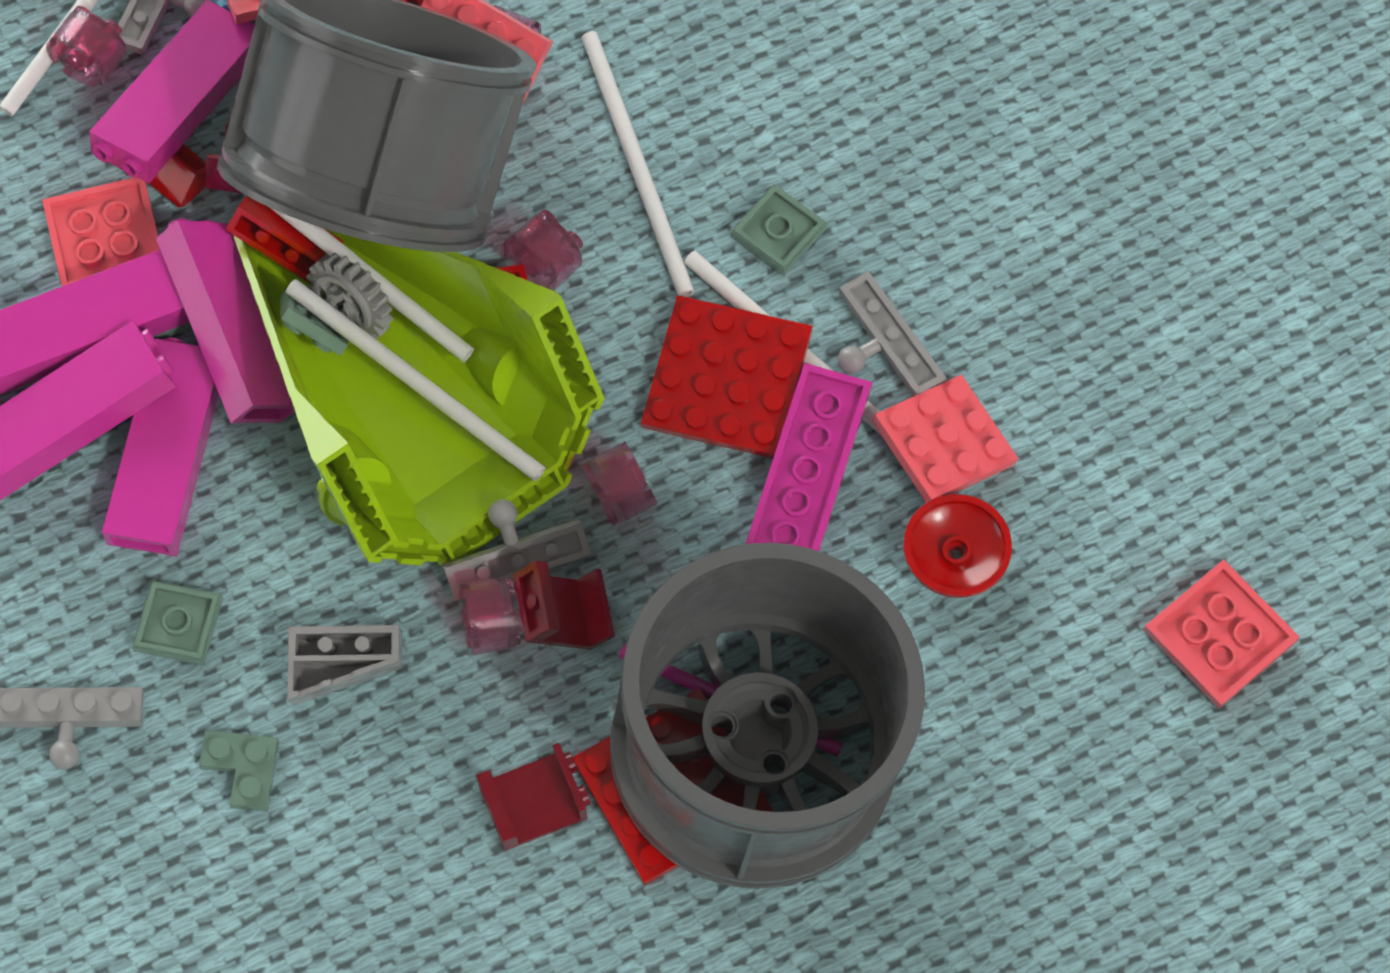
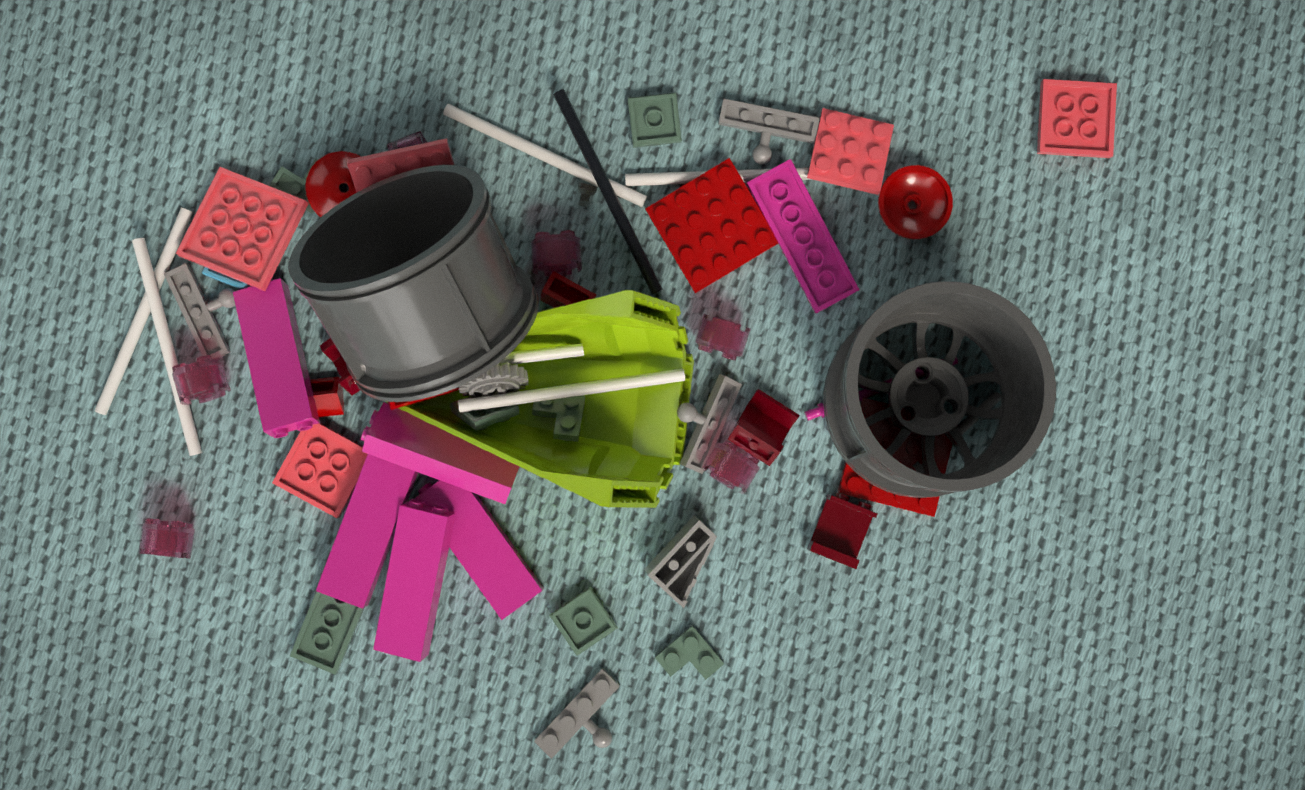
camera: 50 degrees left, 20 degrees up
(387, 400) = (567, 413): none -> sand green plate
(639, 230) = (586, 191): none -> clear smoke piece
(657, 249) = (607, 191): none -> black piece

